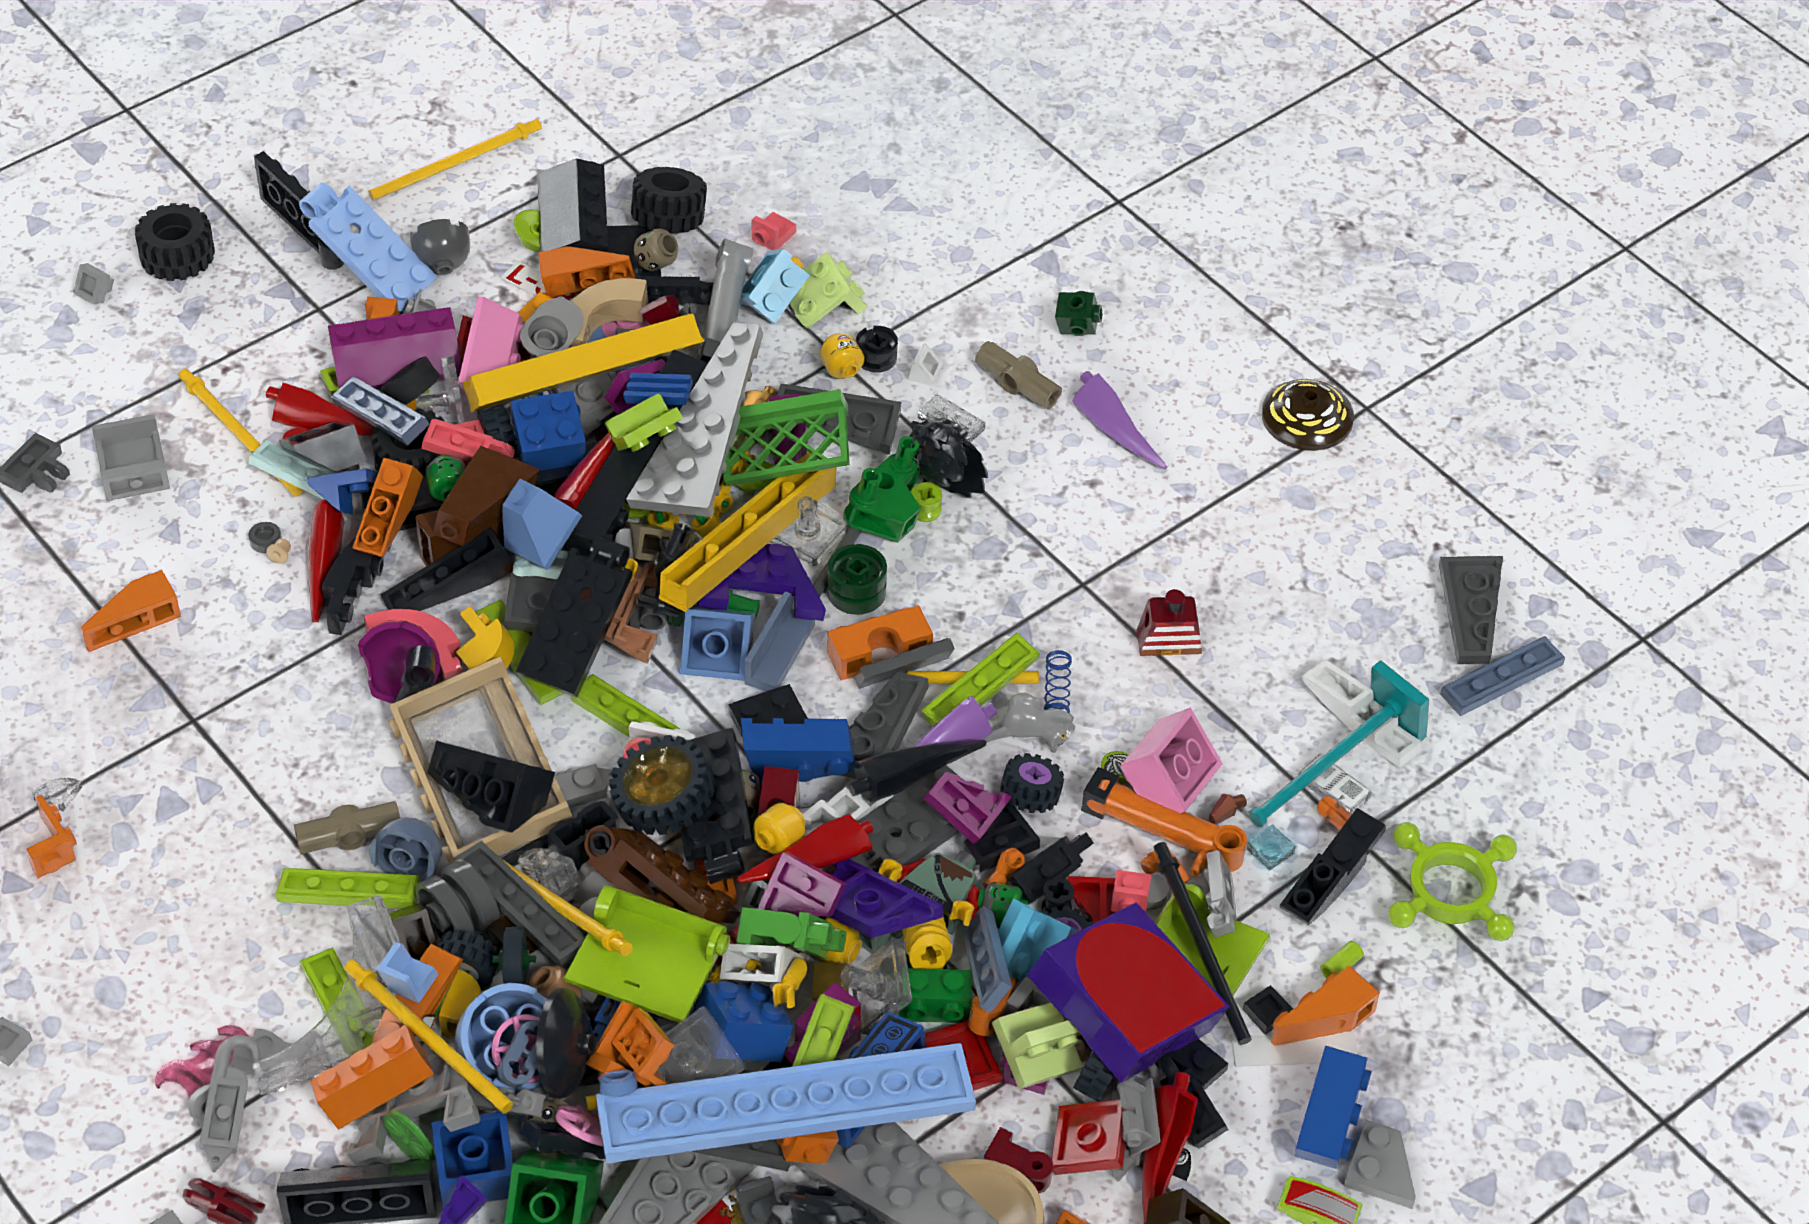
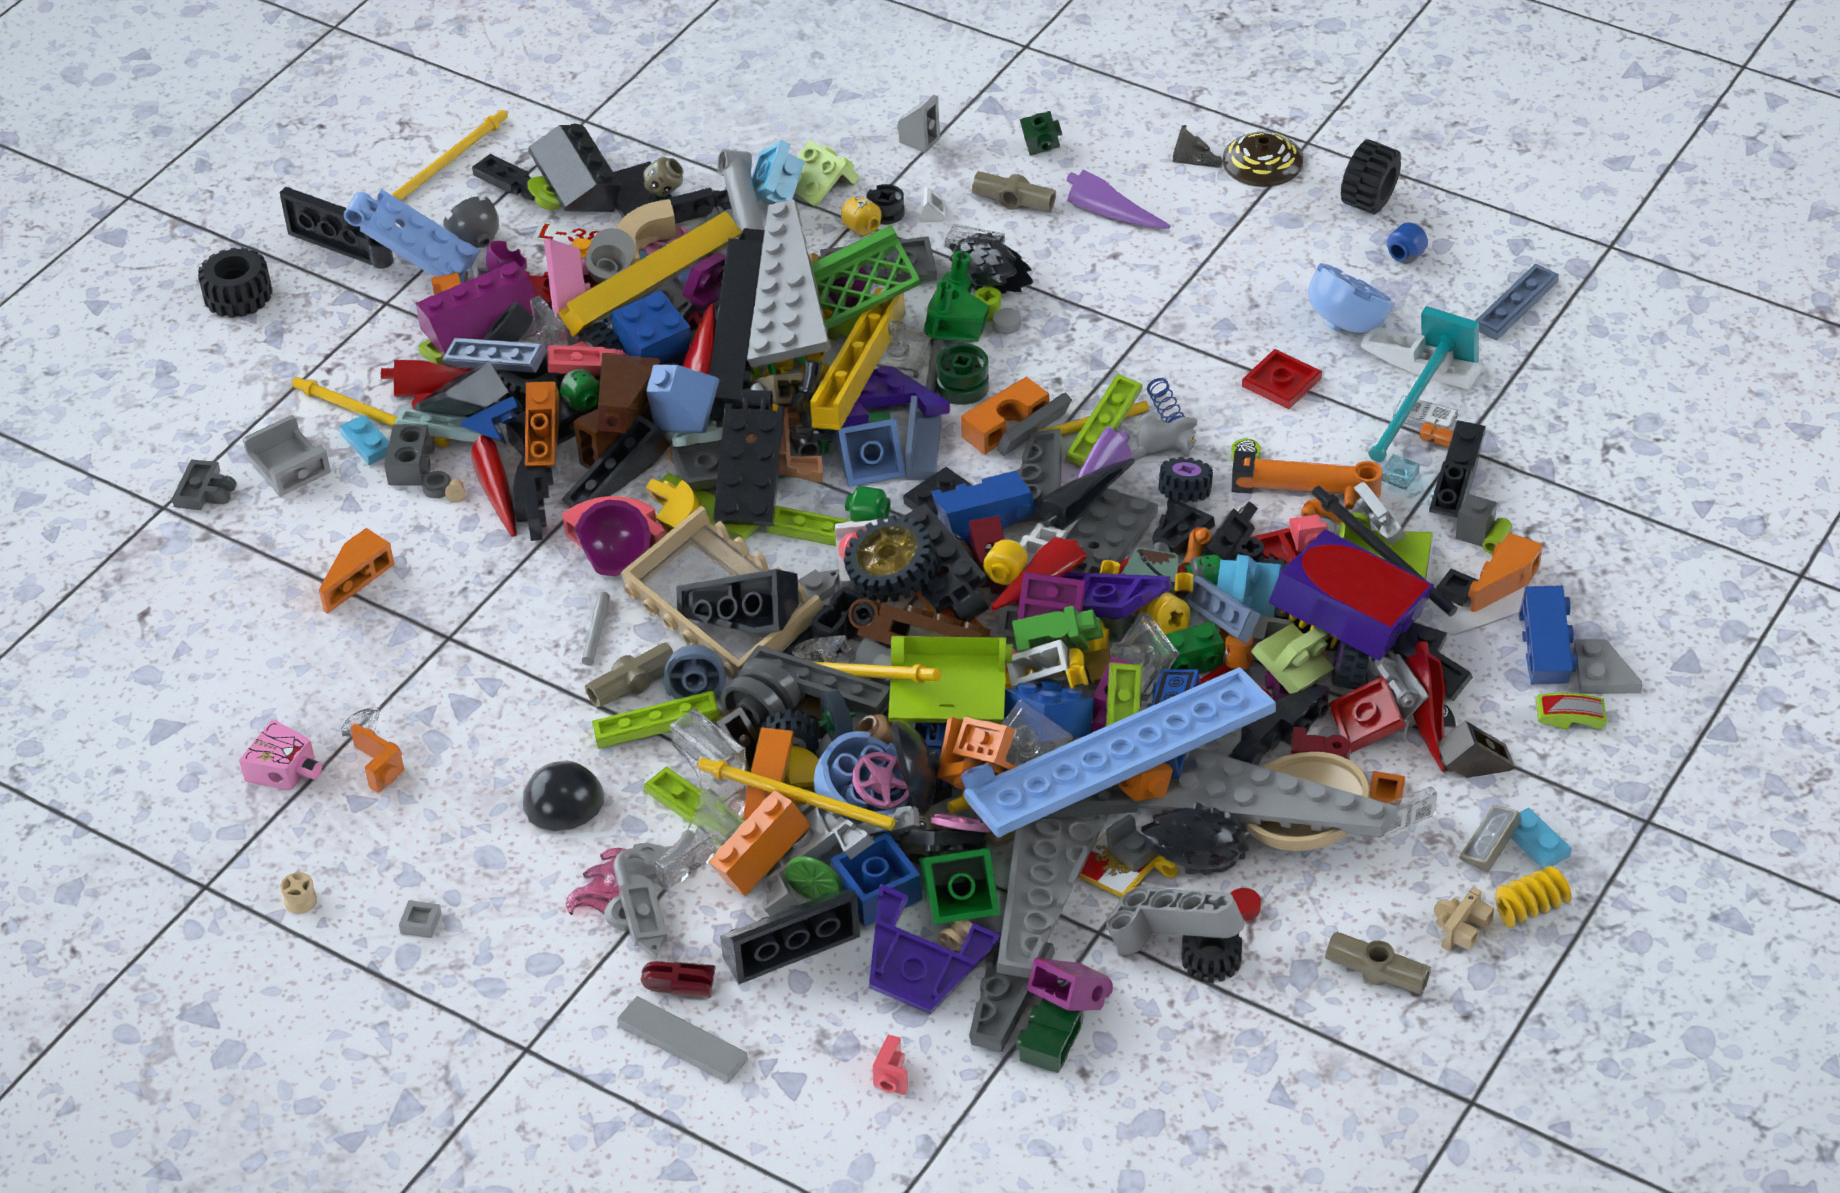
camera: 15 degrees left, 5 degrees down
(92, 283) = (177, 334): light grey tile -> none
(211, 948) = (562, 796): none -> black cylinder
(221, 462) = (365, 439): none -> medium azure plate
(250, 494) = (408, 454): none -> dark grey brick
(341, 759) = (595, 628): none -> light grey bar
(406, 975) = (756, 755): light blue panel -> none
(418, 671) = (636, 544): black pin -> none
(452, 293) = (499, 255): none -> magenta hair
(501, 194) = (503, 175): none -> black hinge
(514, 1051) = (879, 779): sand blue beam -> none
(576, 269) = (604, 208): orange slope -> none
(641, 421) = (735, 295): lime bracket -> none
(658, 384) = (733, 269): blue tile -> none
(661, 310) = (691, 219): dark red slope -> none
(668, 199) = (650, 136): black tyre -> none
(683, 706) = (867, 504): none -> green head
(772, 230) = (749, 140): coral bracket -> none
(938, 527) = (1006, 320): none -> light grey tile
(955, 267) = (921, 125): none -> light grey slope
(966, 804) = (1143, 507): magenta wing -> none
(1004, 1107) = (1294, 710): none -> black slope
(1169, 626) = (1237, 336): torso -> none
(1172, 761) = (1291, 430): bright pink slope -> none
(1202, 686) = (1281, 378): none -> red tile
(1226, 807) = (1349, 453): copper bar -> none
(1236, 381) = (1194, 151): none -> clear smoke tile
(1309, 619) = (1347, 301): none -> light blue cylinder
(1323, 934) = (1475, 519): none -> dark grey brick
(1404, 477) = (1370, 176): none -> black tyre
(1412, 567) = (1407, 242): none -> blue head
(1471, 603) = (1463, 252): dark grey wing -> none
(1502, 849) = (1561, 436): lime piece -> none

